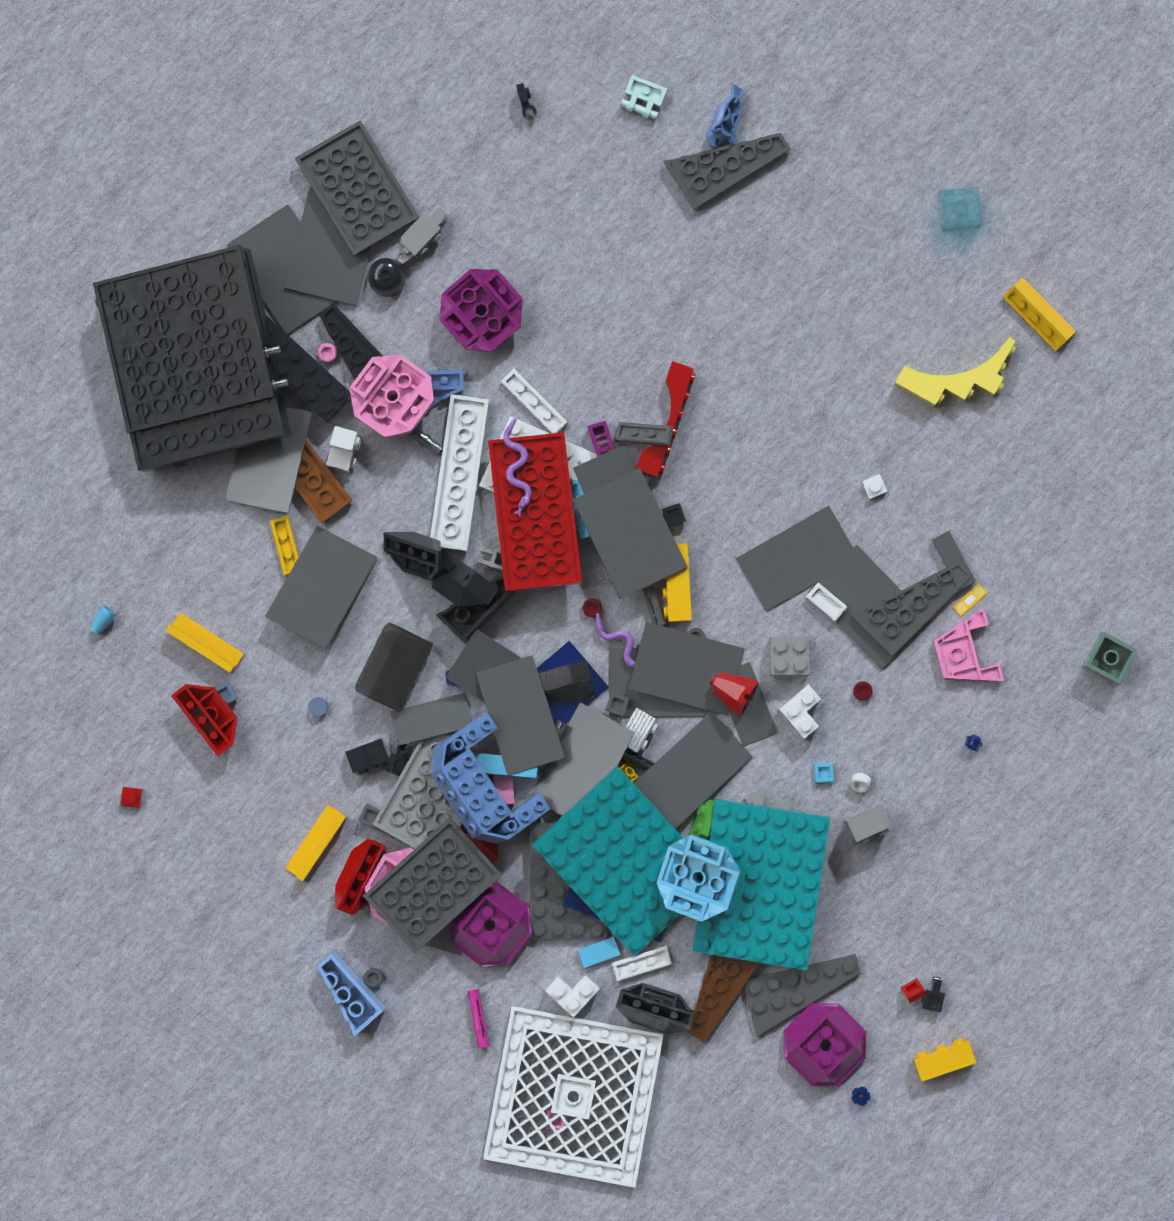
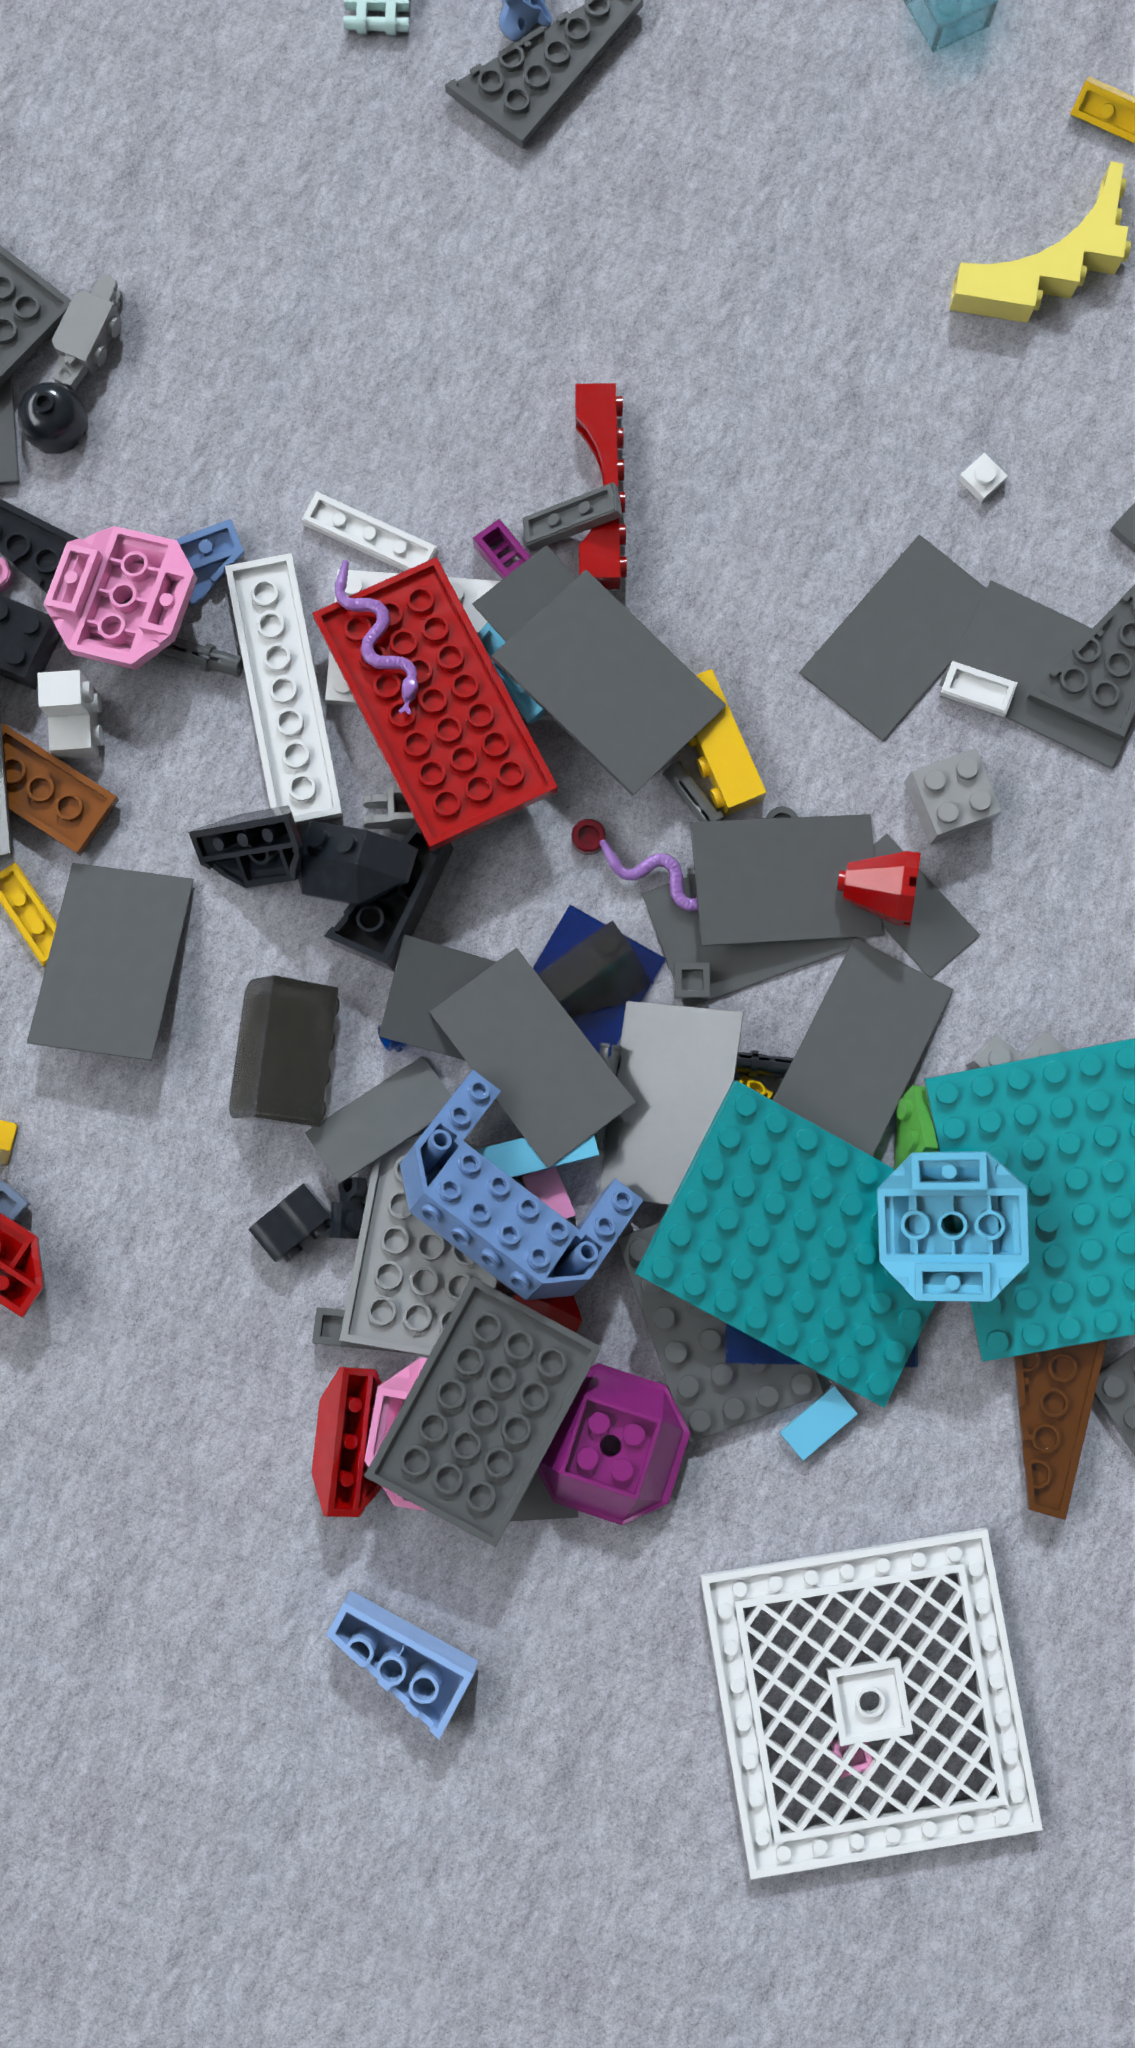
camera: 20 degrees left, 5 degrees down
(316, 842) = (252, 1409): yellow panel -> none
(318, 706) = (176, 1169): sand blue tile -> none
(373, 977) = (436, 1615): dark grey tile -> none
(478, 1018) = (650, 1622): dark pink pin -> none
(483, 289) = (224, 377): magenta piece -> none
(524, 95) = (181, 63): black plate -> none
(572, 998) = (806, 1522): white brick -> none
(642, 725) = (753, 998): white brick -> none
(642, 963) = (900, 1415): white tile -> none
(655, 1008) = (958, 1488): black wedge -> none
(673, 515) = (672, 632): black plate -> none
(796, 711) = (1002, 887): white brick -> none
(823, 772) = (1084, 973): medium azure tile -> none
(862, 690) = (1095, 814): dark red tile -> none

